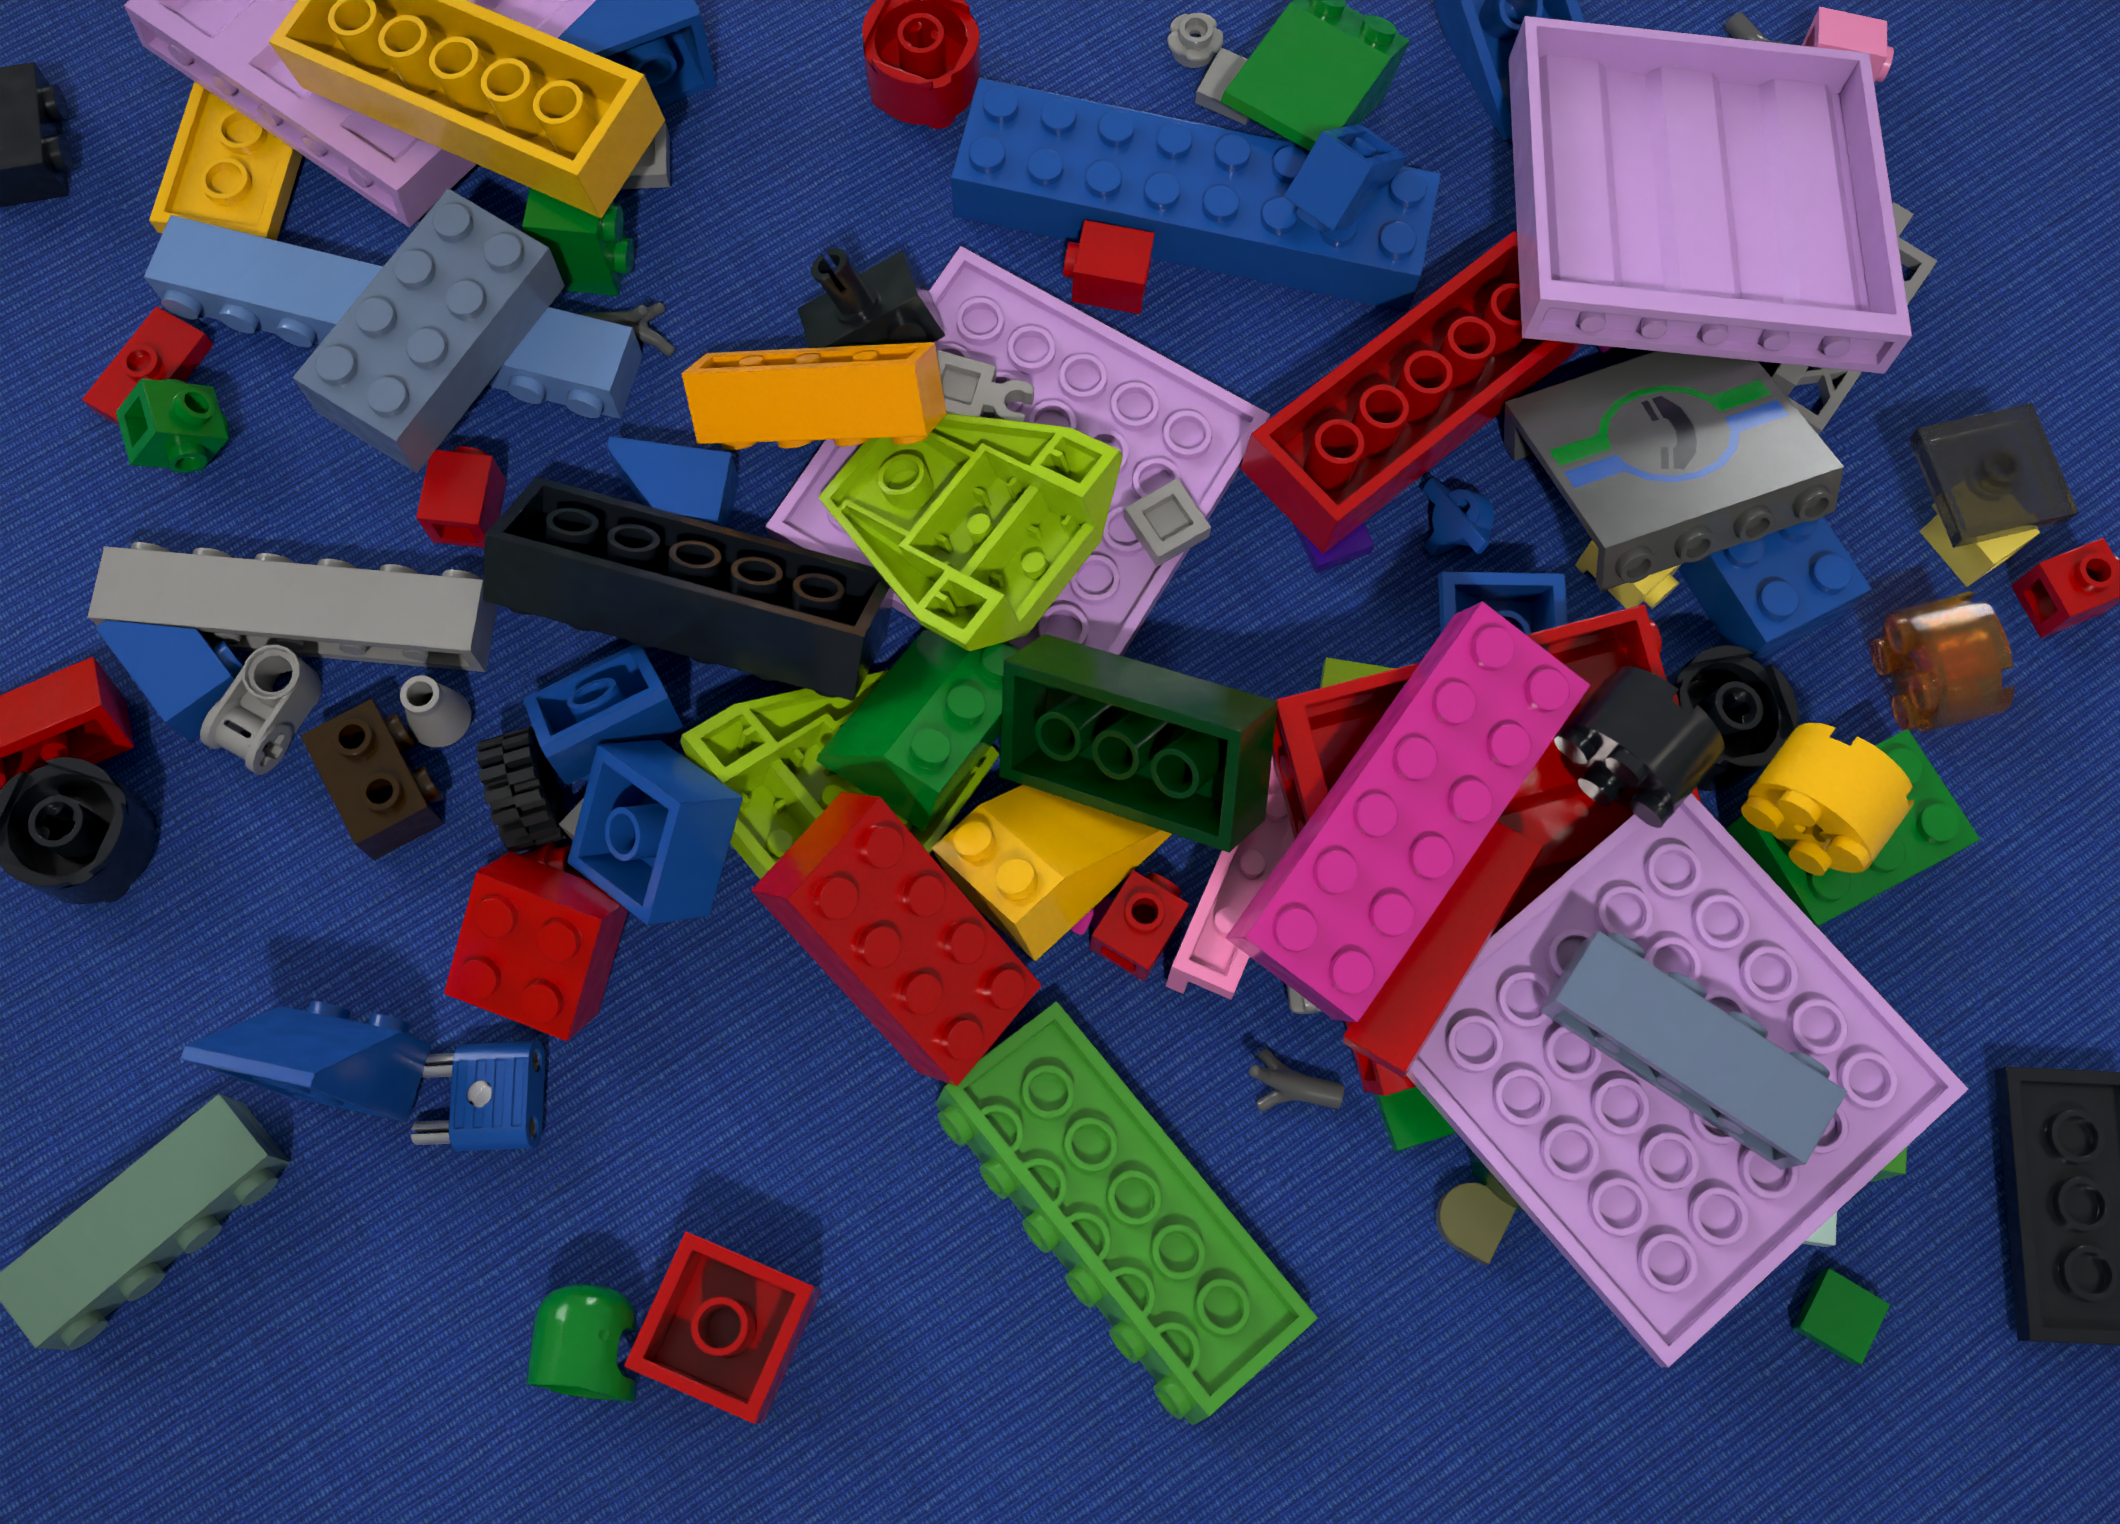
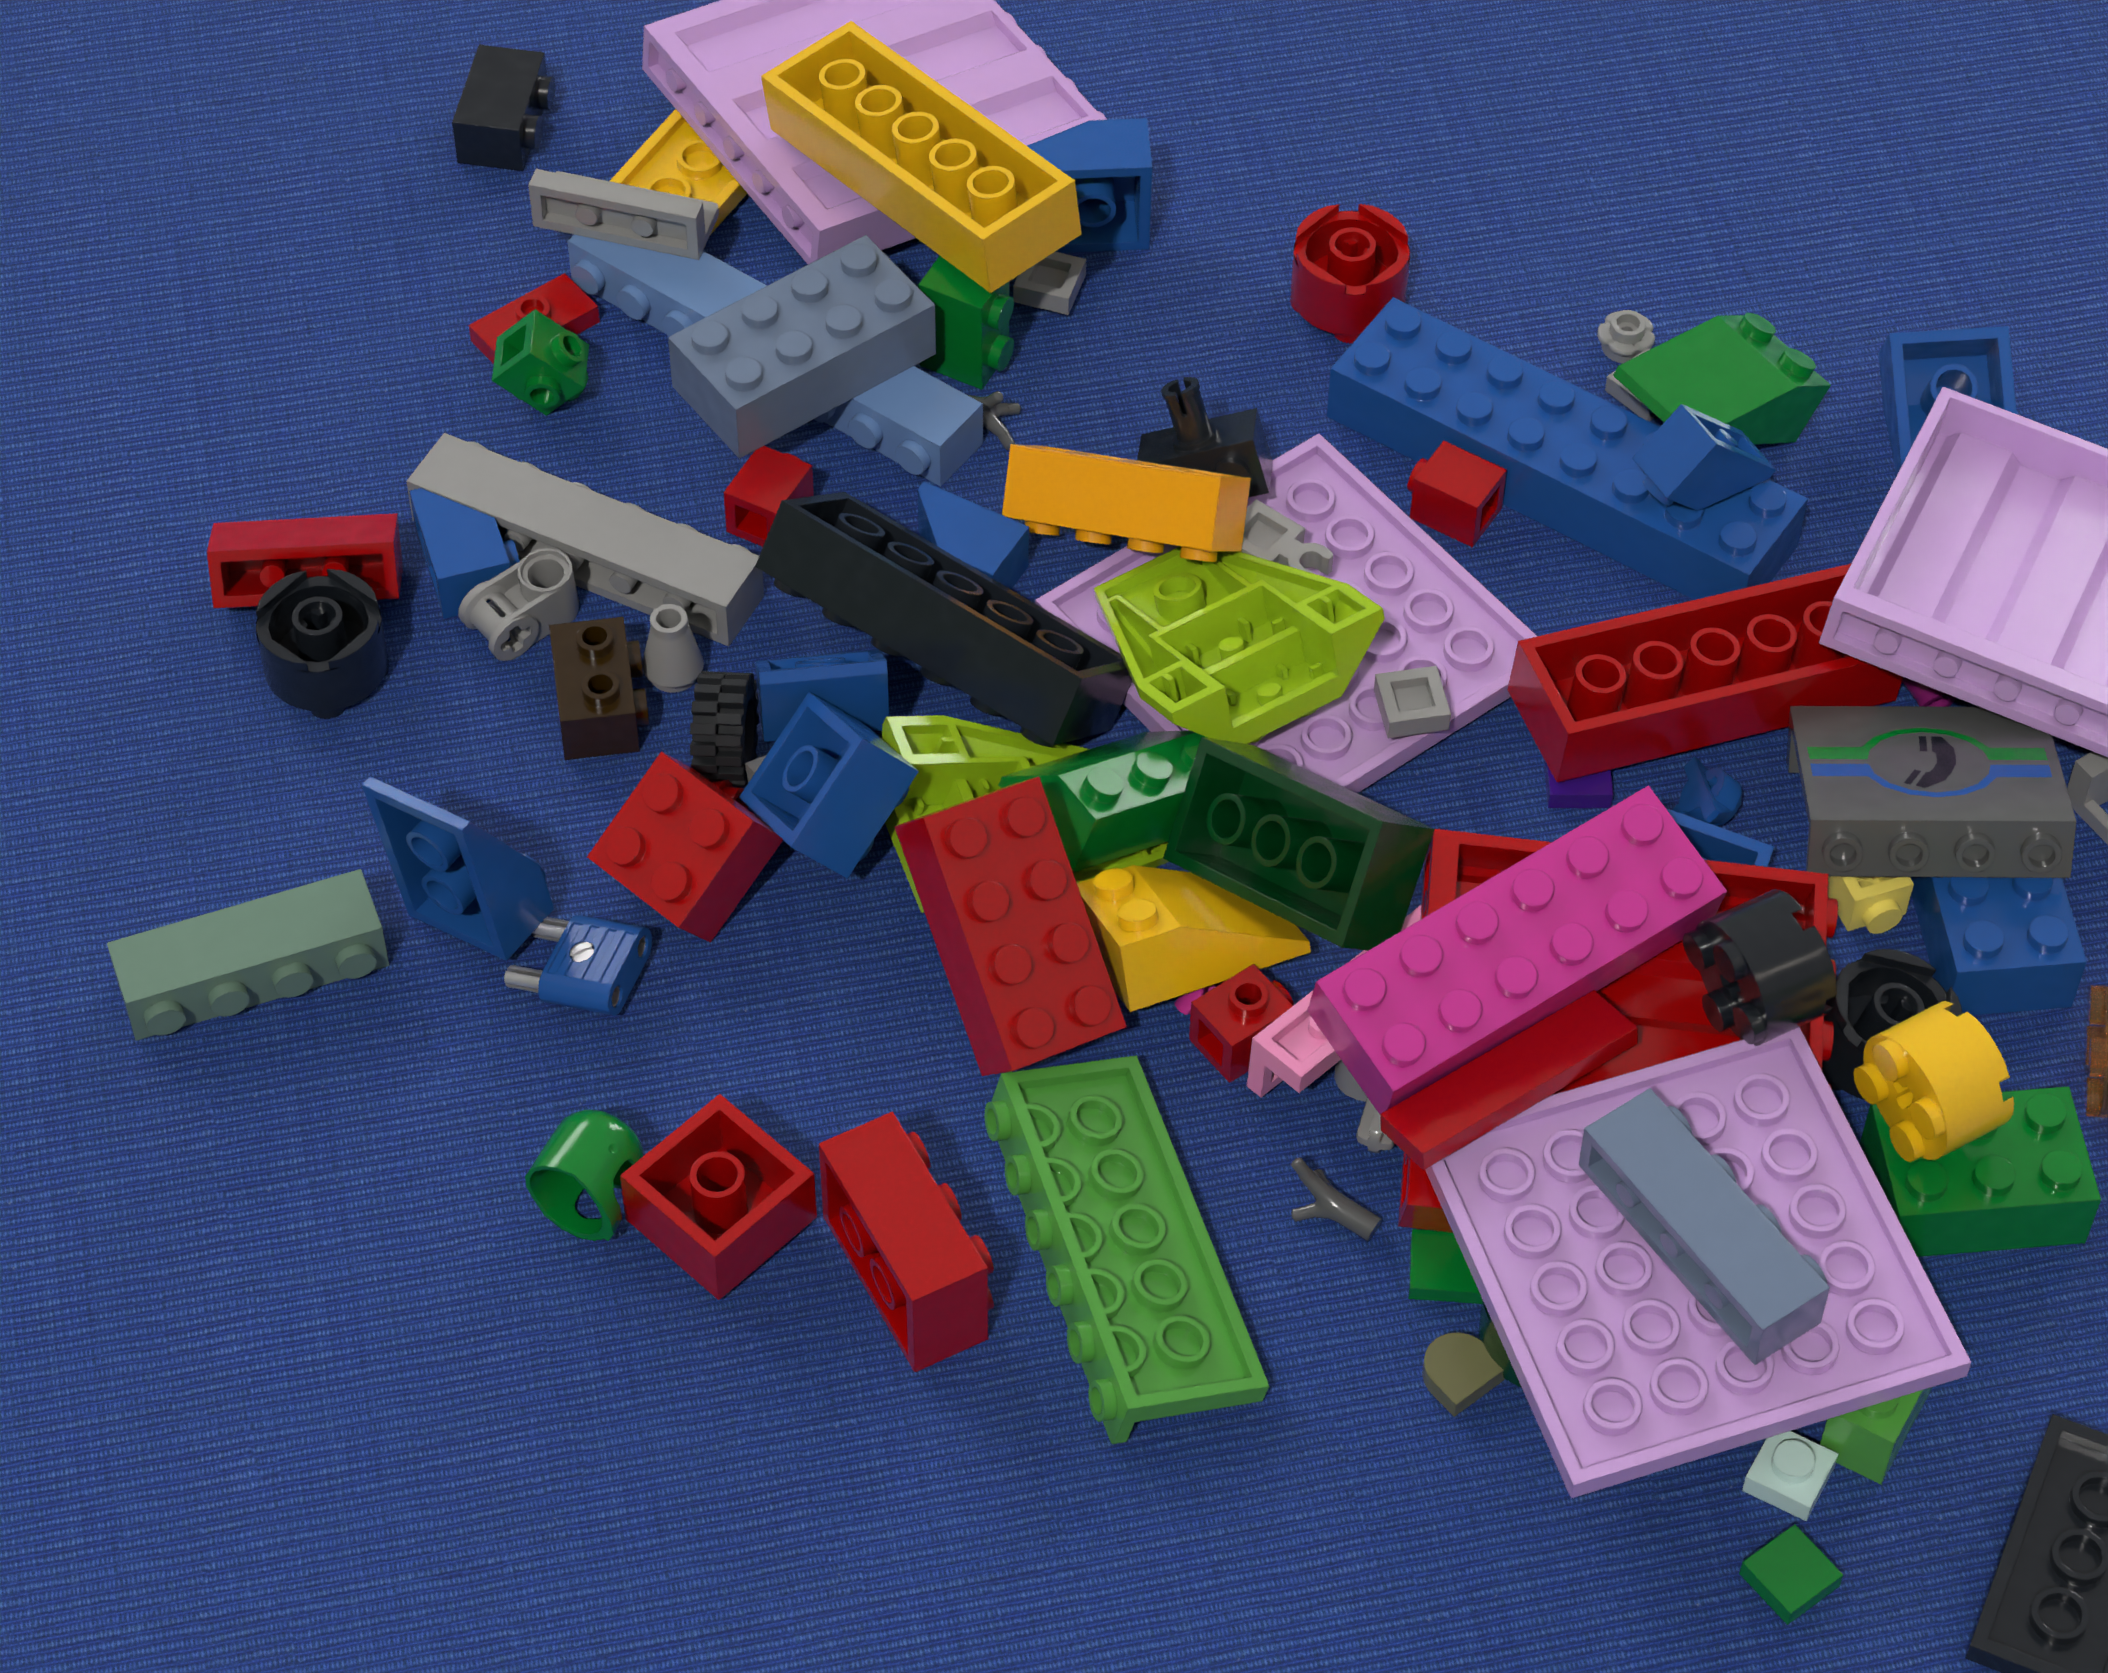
camera: 25 degrees right, 20 degrees down
(186, 228) = (621, 213): none -> light grey panel
(926, 1309) = (906, 1240): none -> red brick

